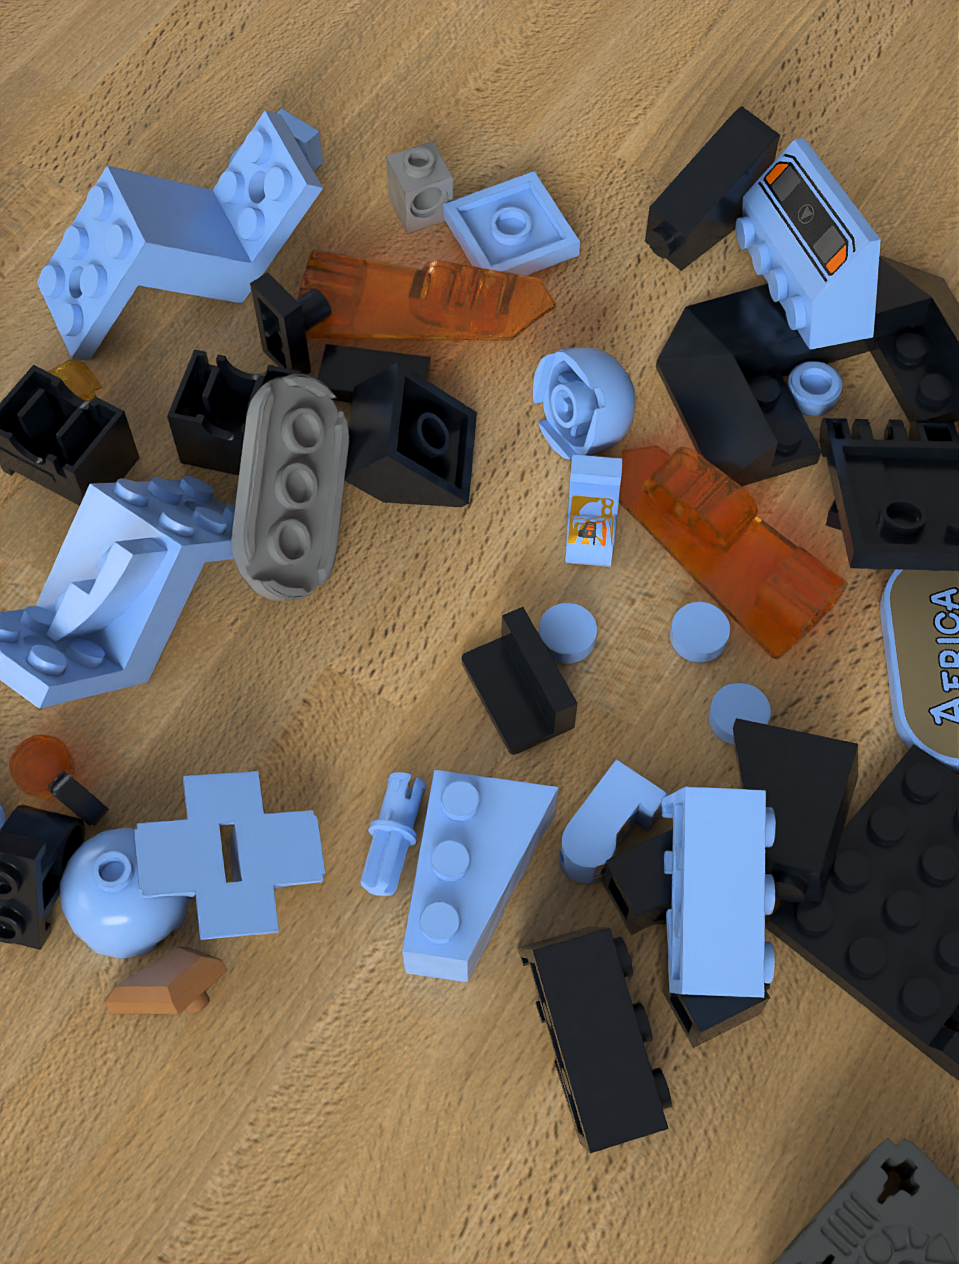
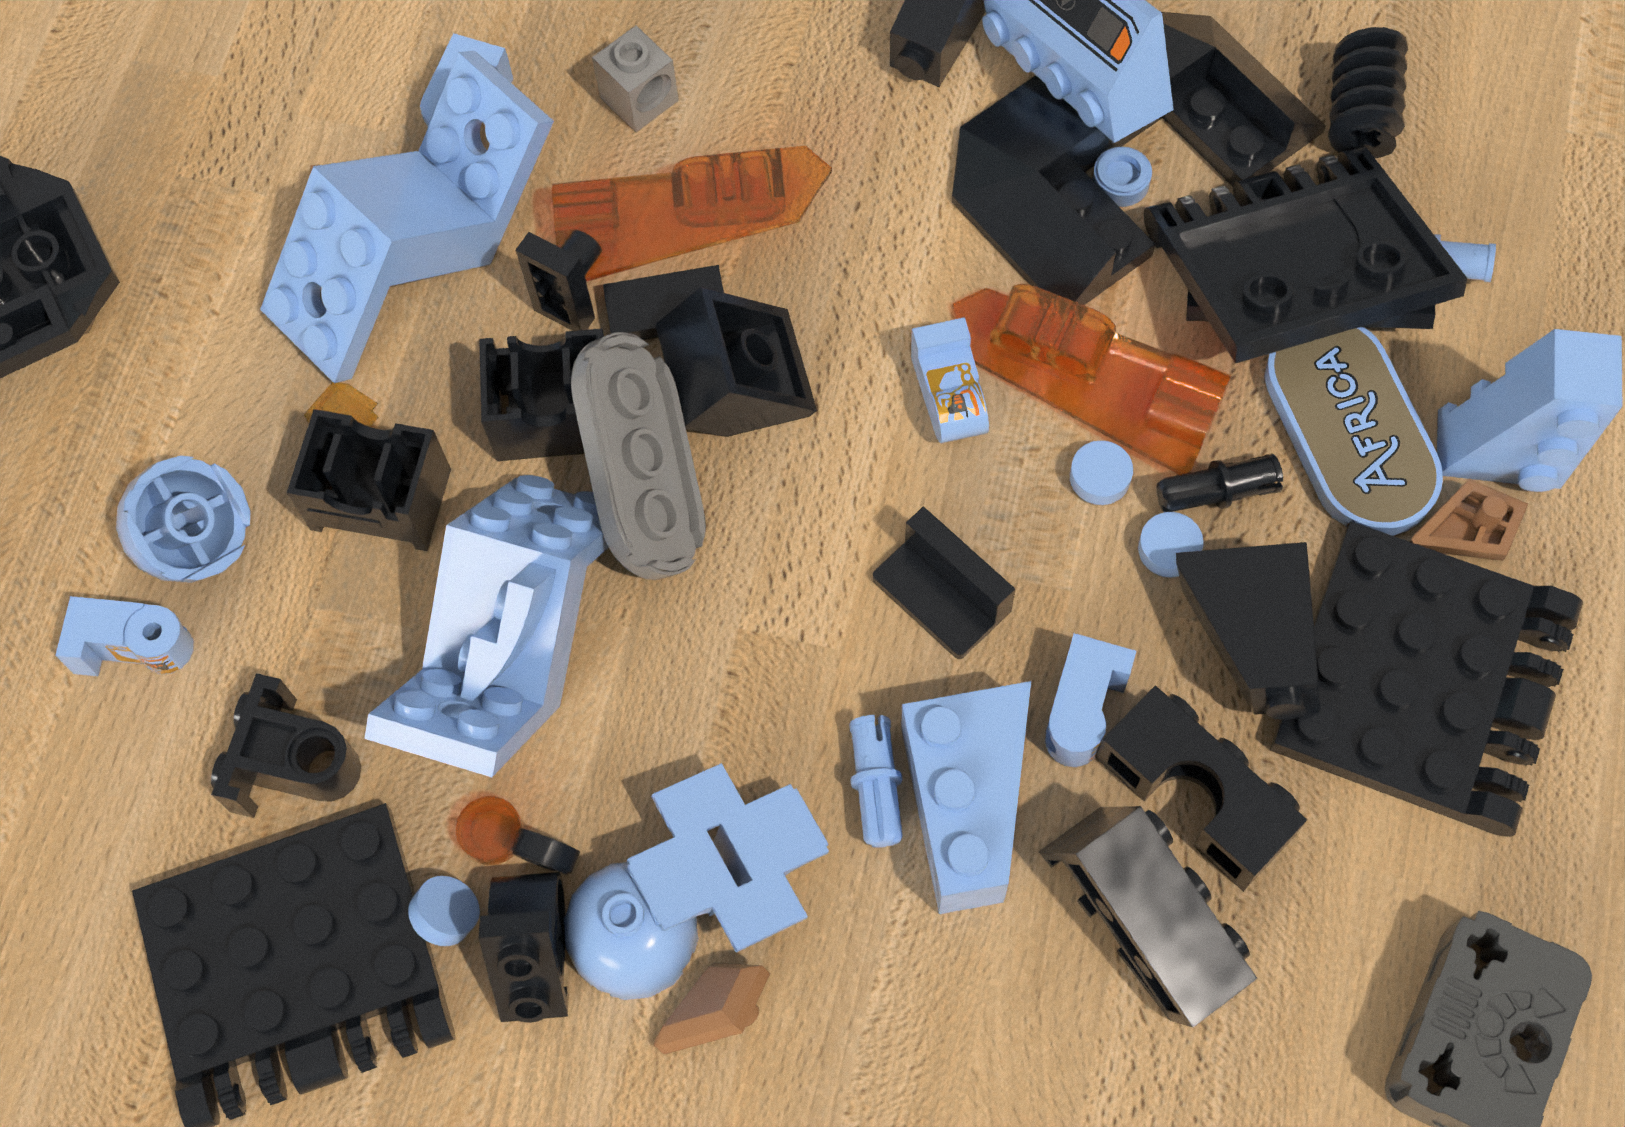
camera: 15 degrees left, 5 degrees up
(512, 227) = (748, 94): light blue plate -> none
(568, 632) = (971, 514): light blue tile -> none
(584, 400) = (899, 266): light blue cylinder -> none
(719, 891) = (1230, 736): light blue wedge -> none
(804, 674) = (1221, 484): none -> black axle

